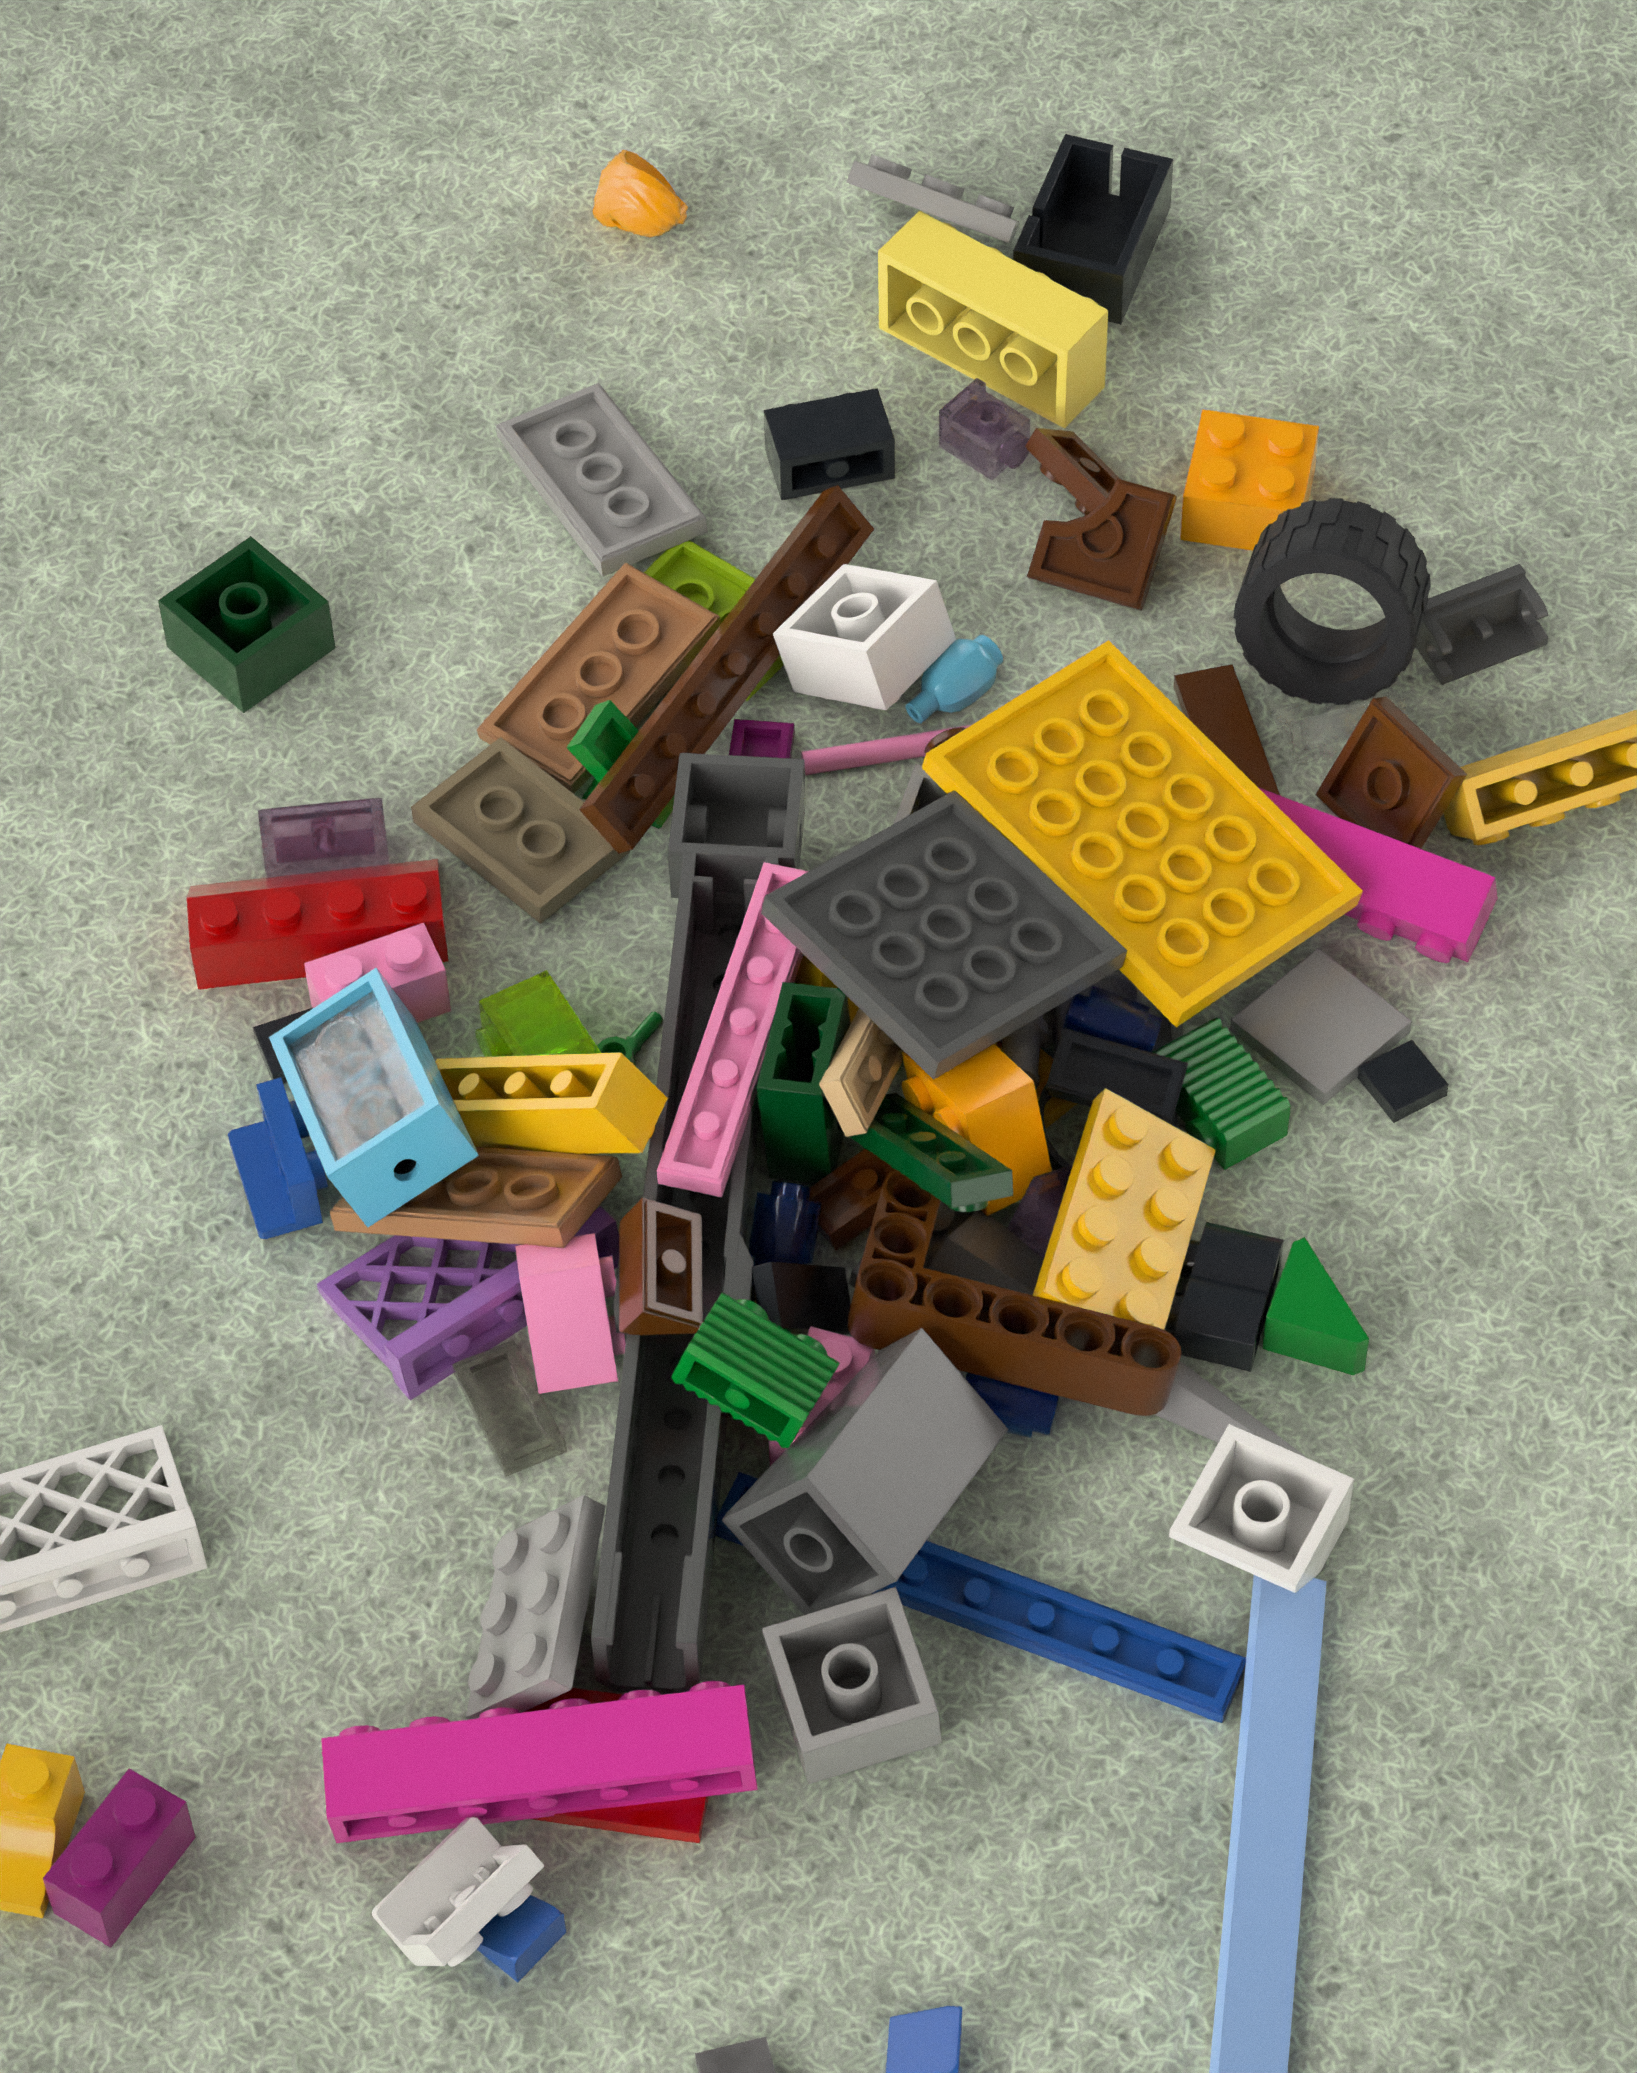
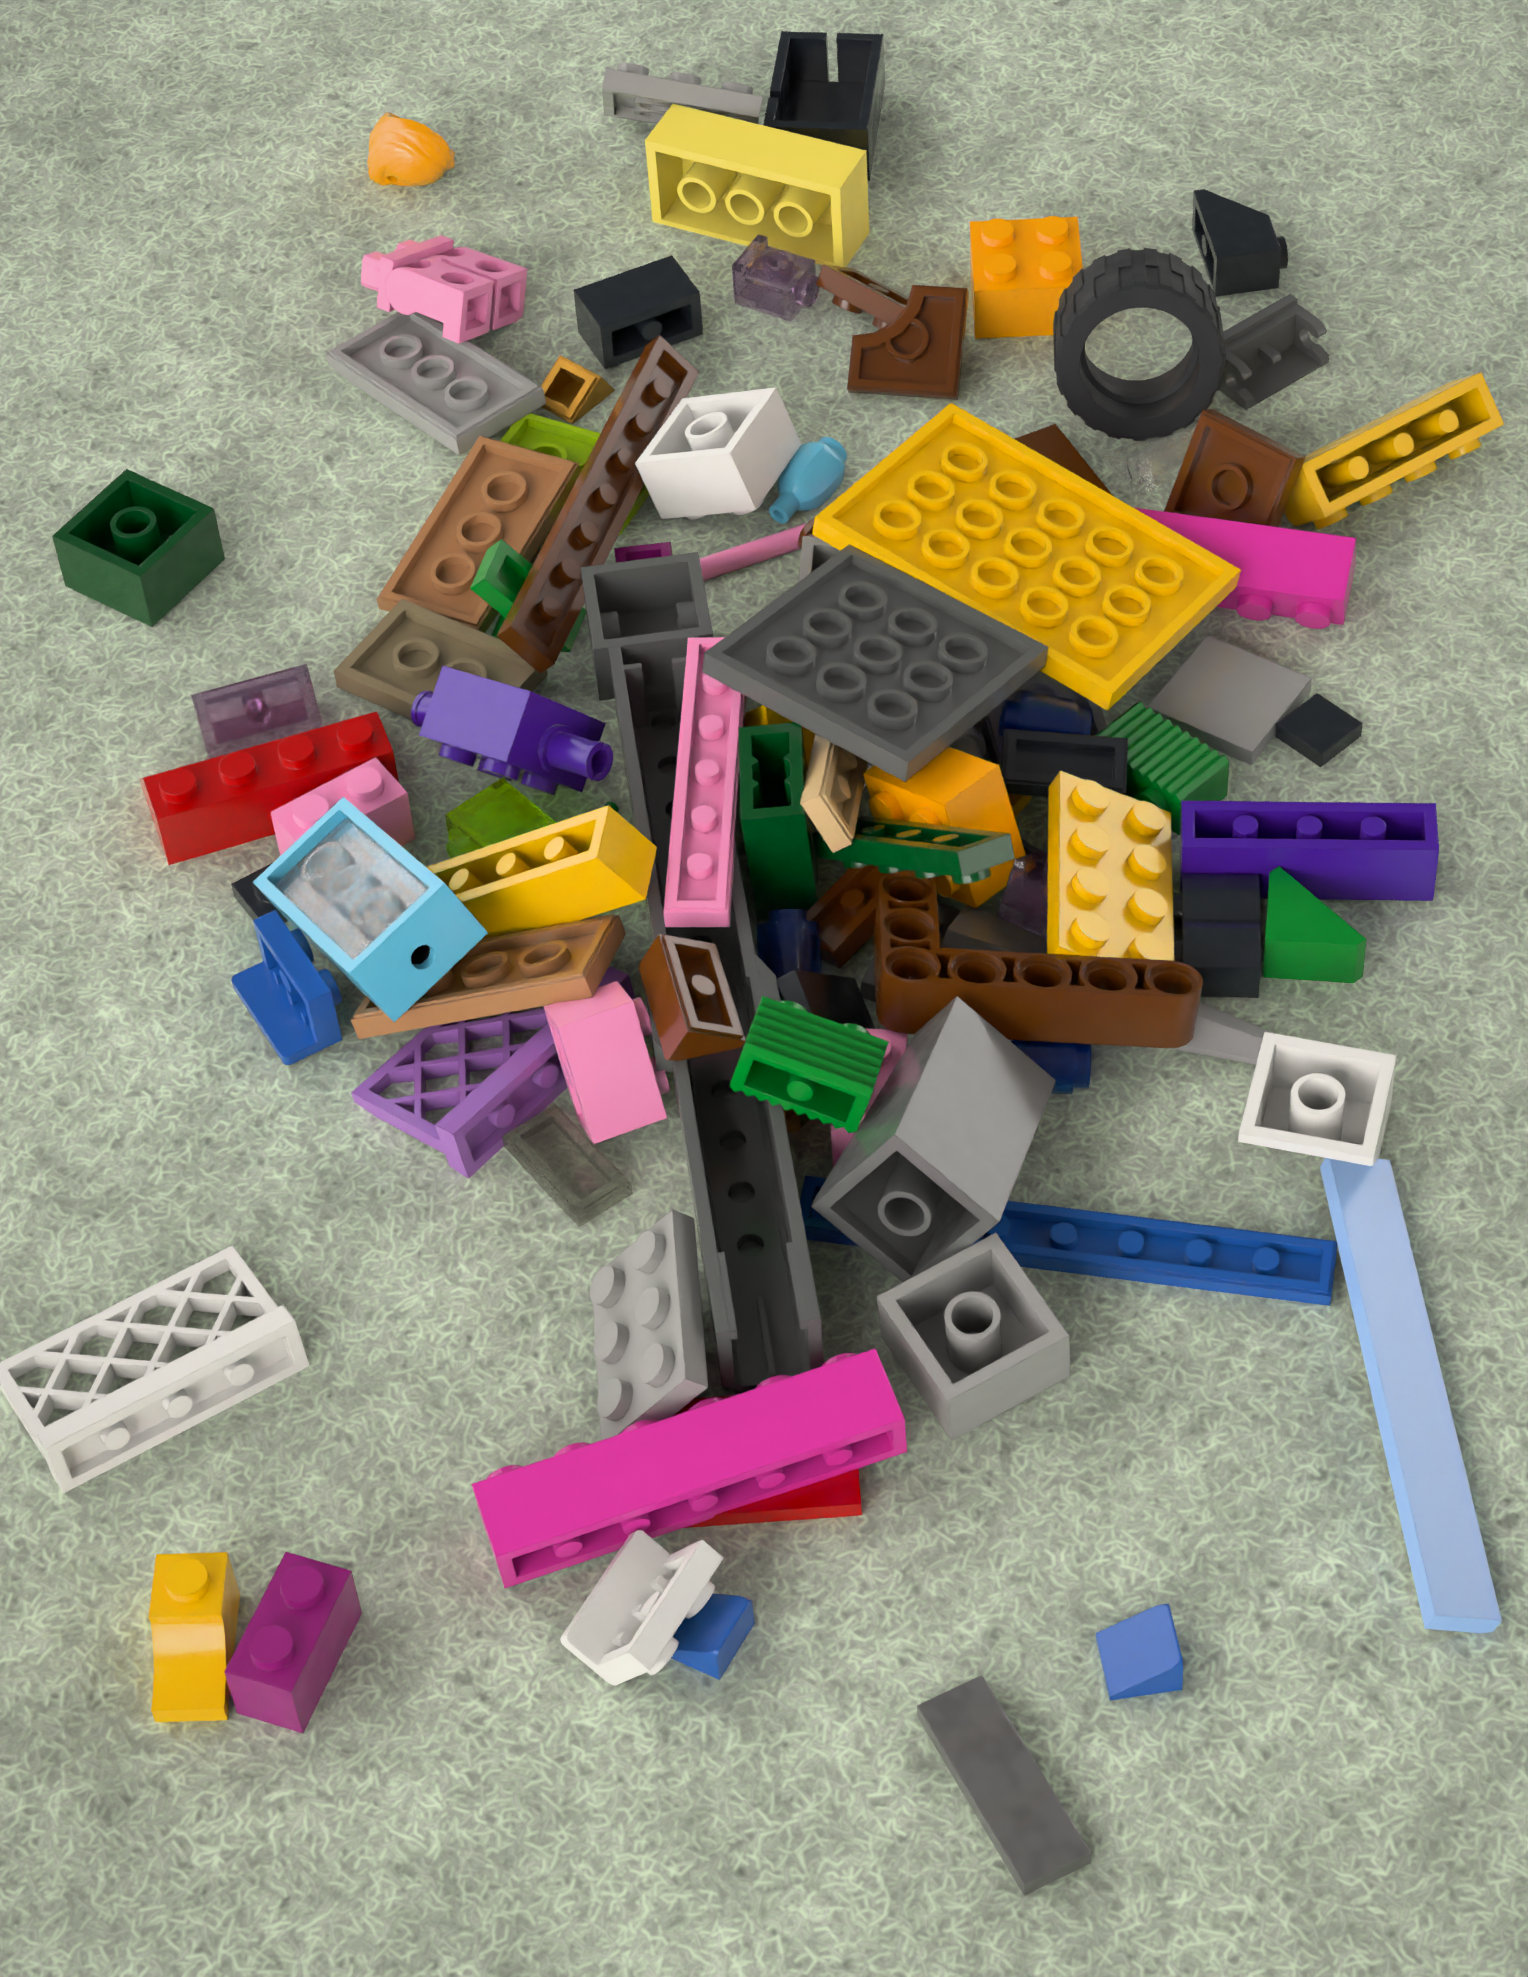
camera: 10 degrees left, 5 degrees down
(565, 925) = (512, 732): none -> dark purple brick
(637, 374) = (447, 284): none -> bright pink hips
(740, 520) = (573, 390): none -> pearl gold slope
(1349, 1221) = (1324, 846): none -> dark purple brick
(1487, 487) = (1236, 245): none -> black slope

